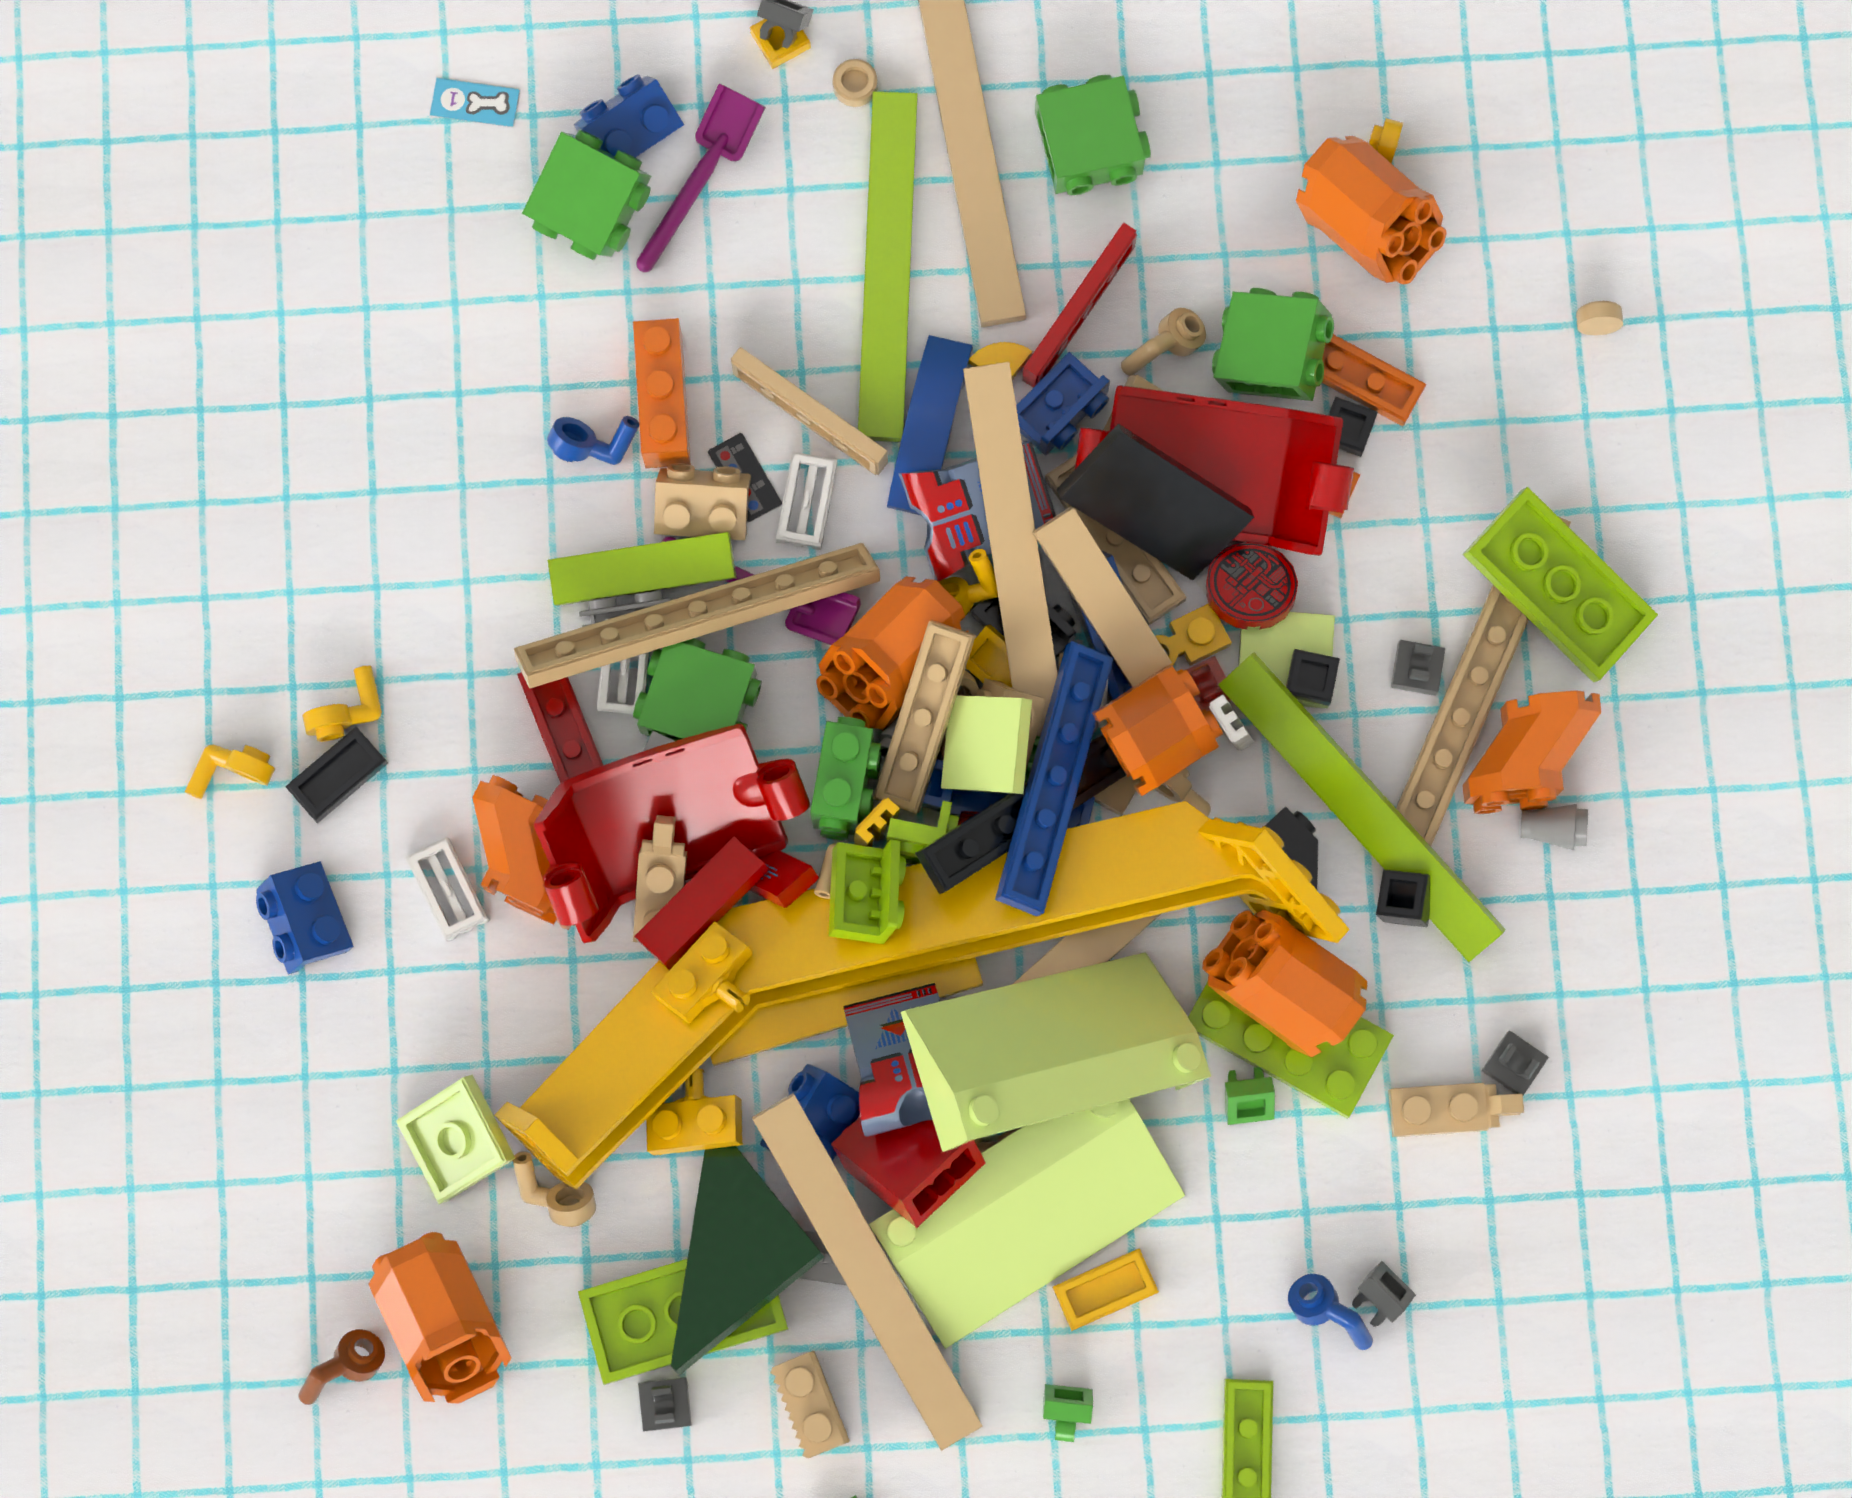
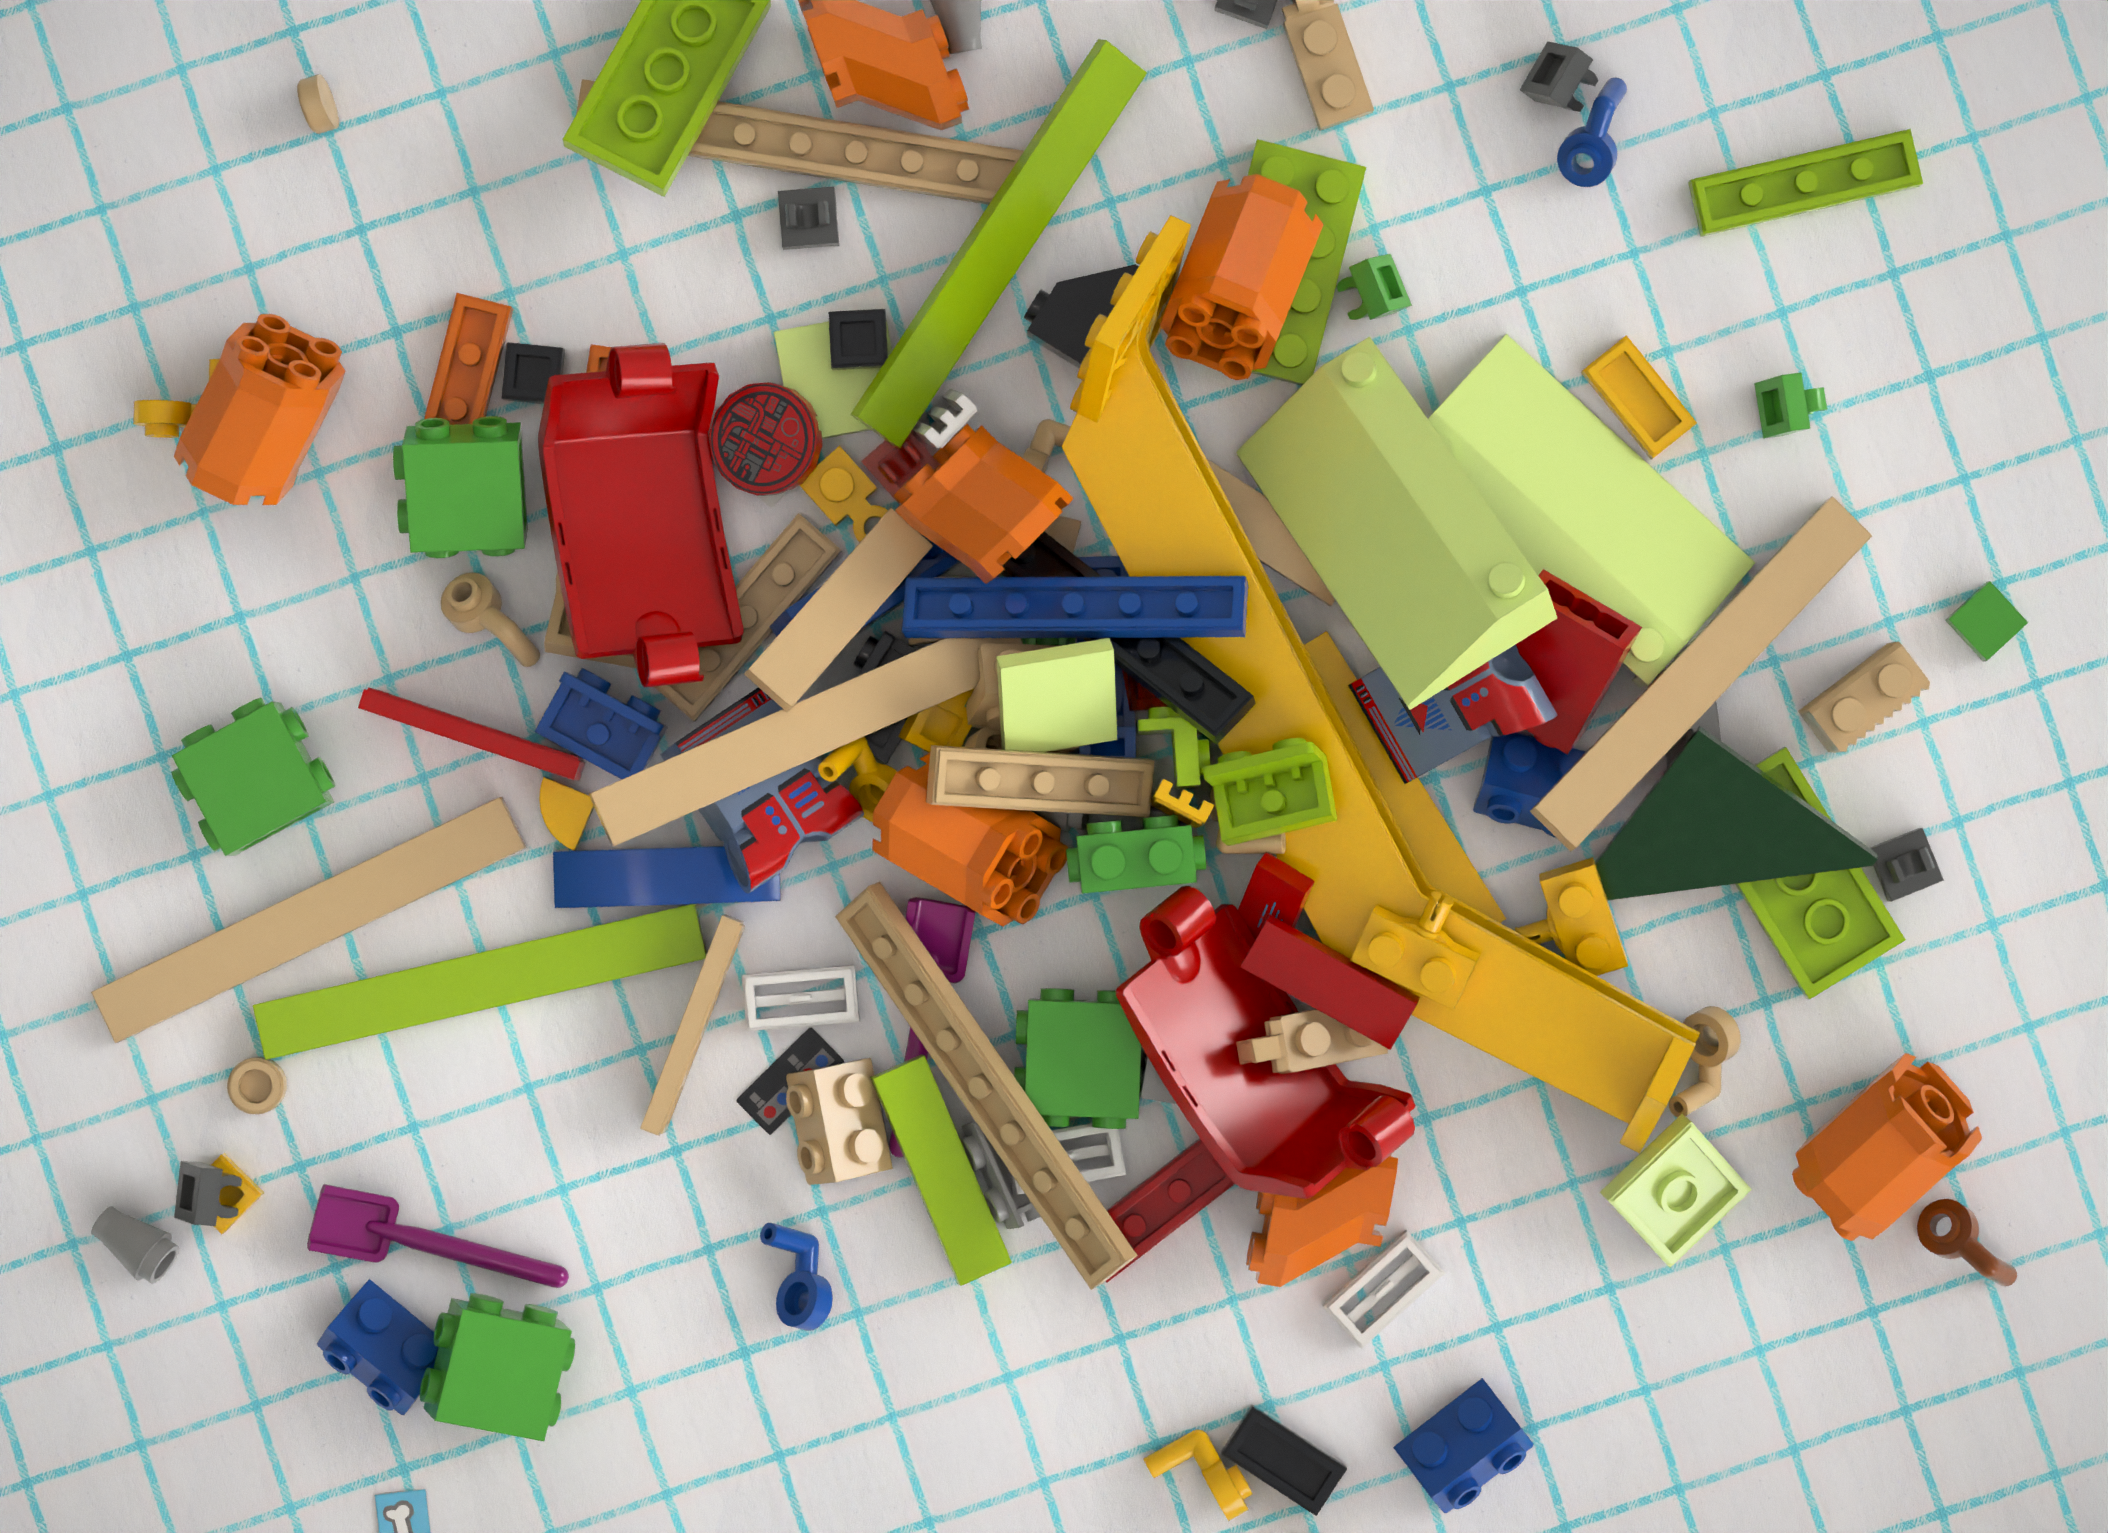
camera: 105 degrees left, 10 degrees up
(661, 392) = (719, 1208): orange brick -> none
(1155, 502) = (708, 576): black tile -> none
(1404, 898) = (1093, 165): black slope -> none

